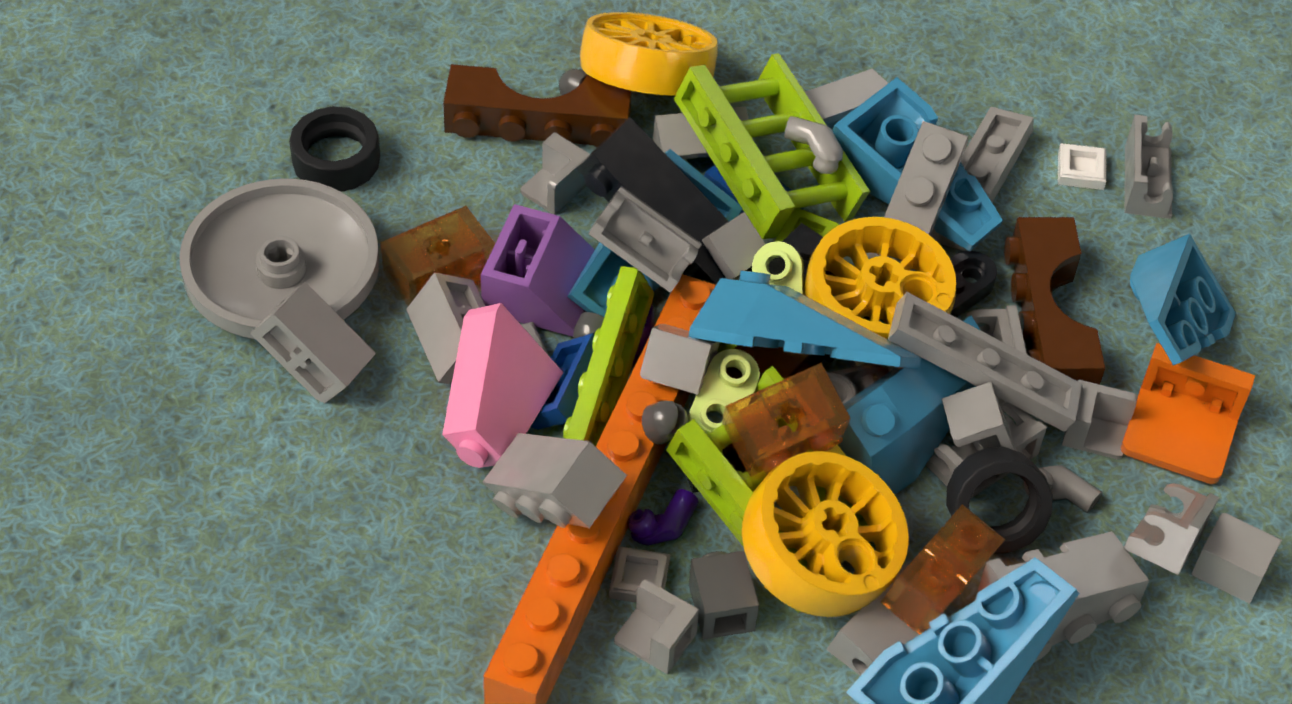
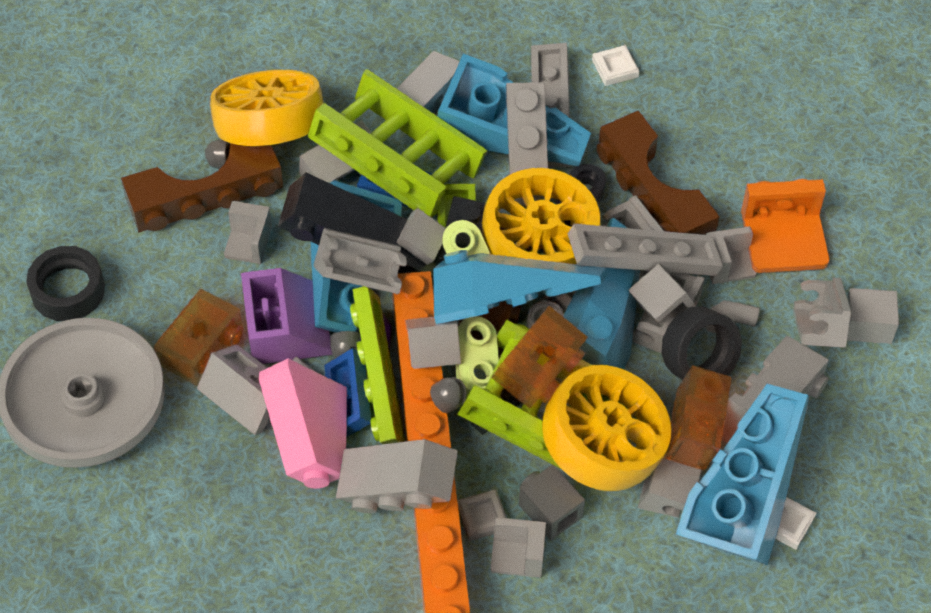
camera: 25 degrees left, 5 degrees up
(313, 343) = (150, 448): light grey hinge -> none
(663, 527) = (481, 467): dark purple arm -> none
(821, 141) = (436, 126): light grey arm -> none
(1148, 171) = (663, 50): light grey hinge -> none
(1181, 298) = (741, 142): dark azure wedge -> none

